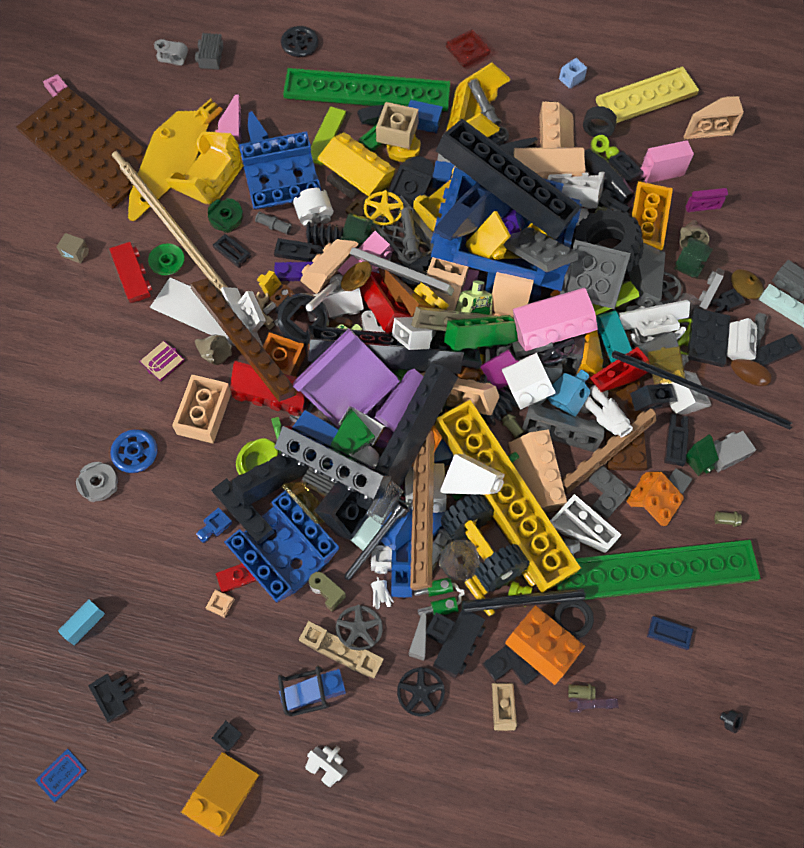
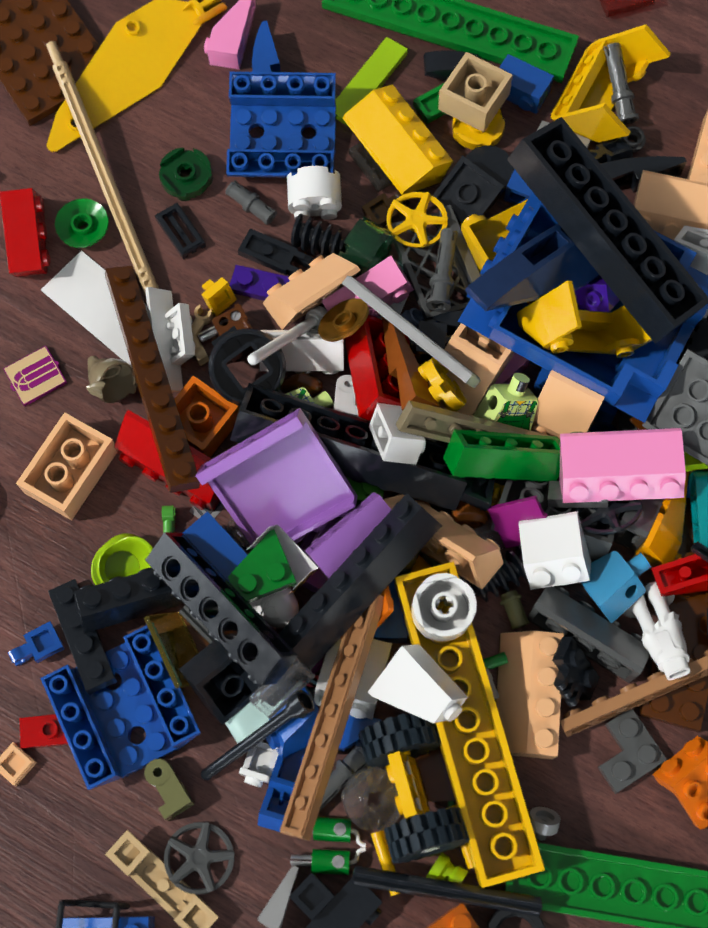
camera: 20 degrees right, 5 degrees up
(213, 169) = (185, 100): yellow windscreen -> none
(381, 593) = (244, 810): white piece -> none
(476, 415) = (453, 593): none -> white brick
(540, 249) = (627, 352): dark grey plate -> none
(563, 453) = (576, 674): none -> black hinge
(582, 523) = (574, 797): white wedge -> none

